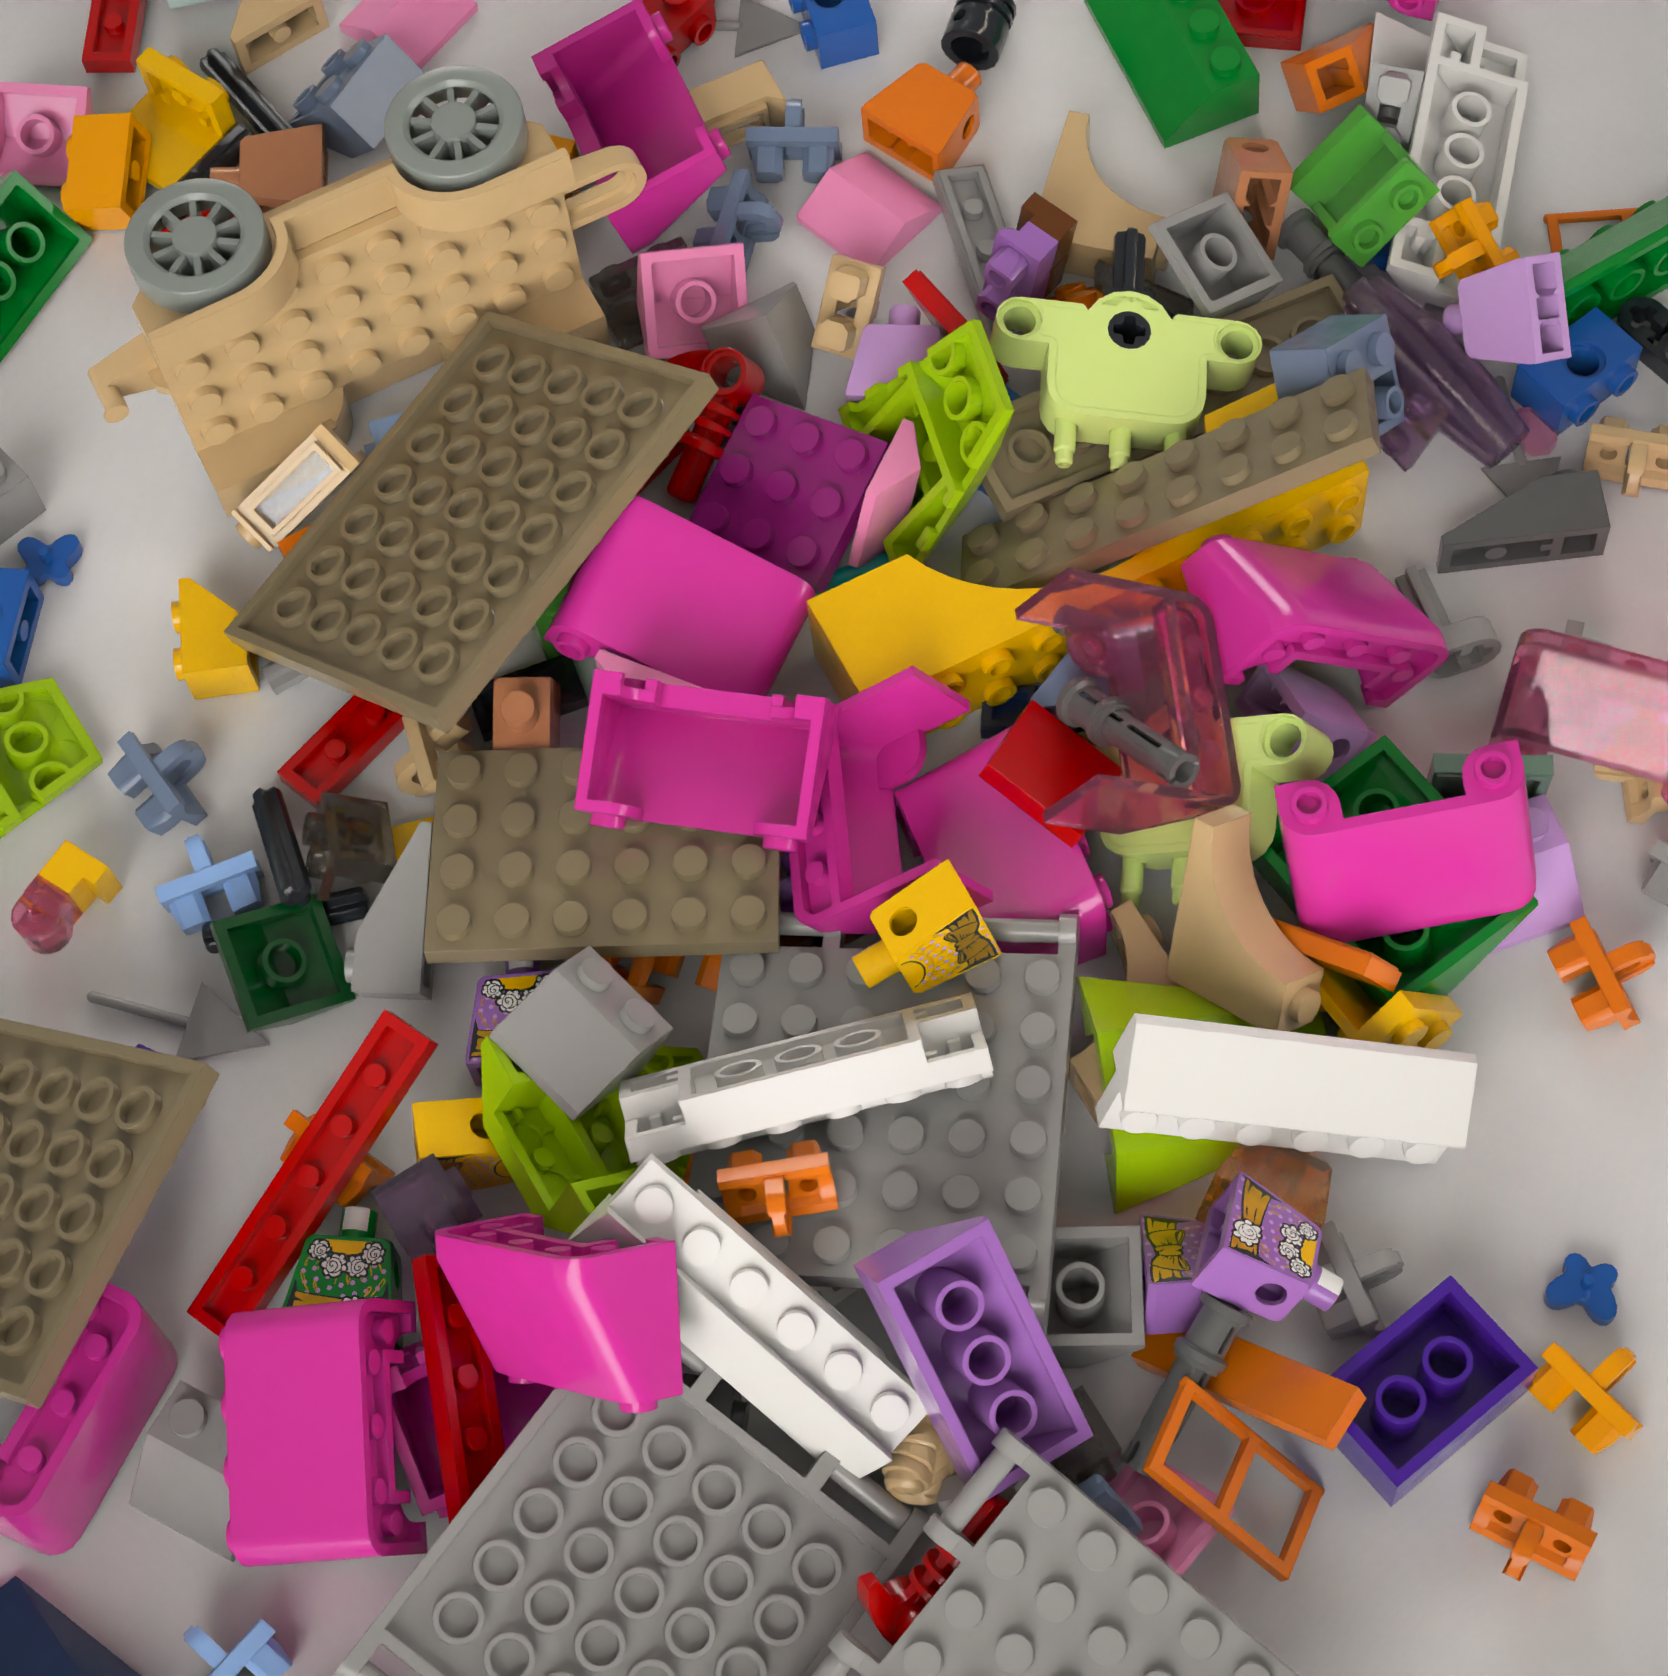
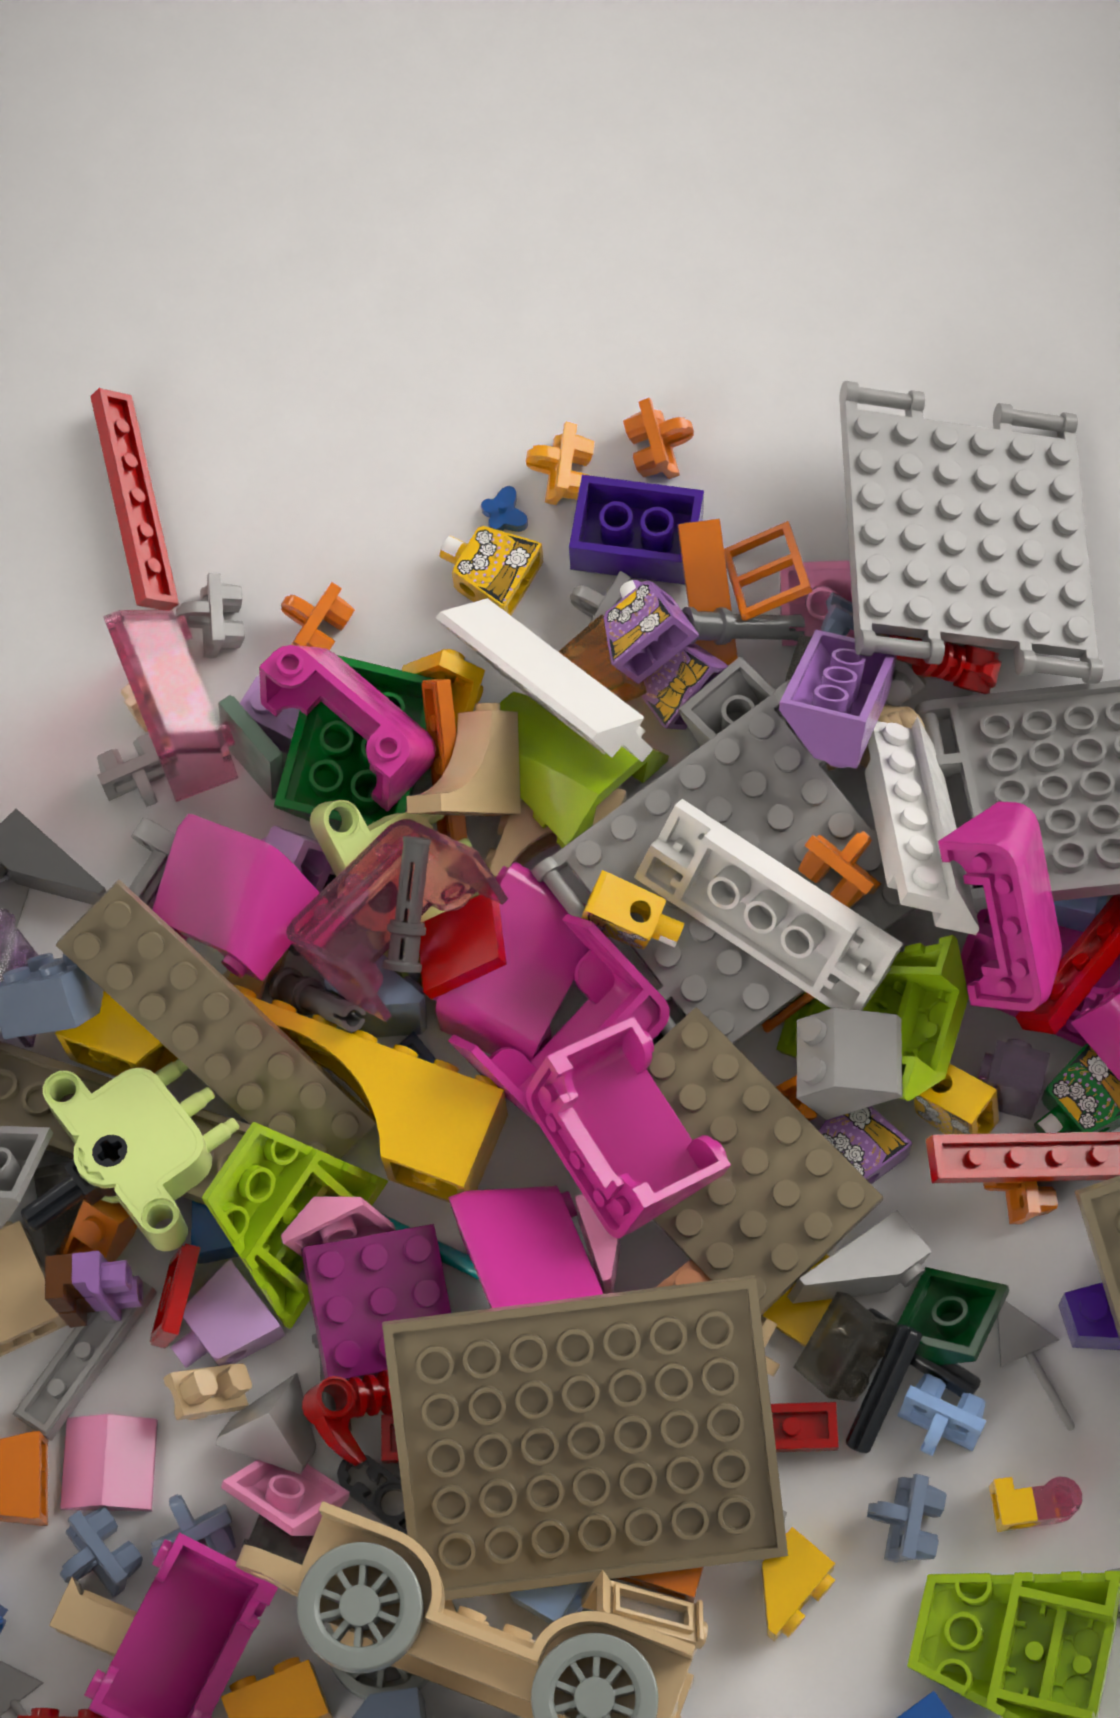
camera: 135 degrees left, 5 degrees up
(1510, 1205) = (493, 566): none -> torso

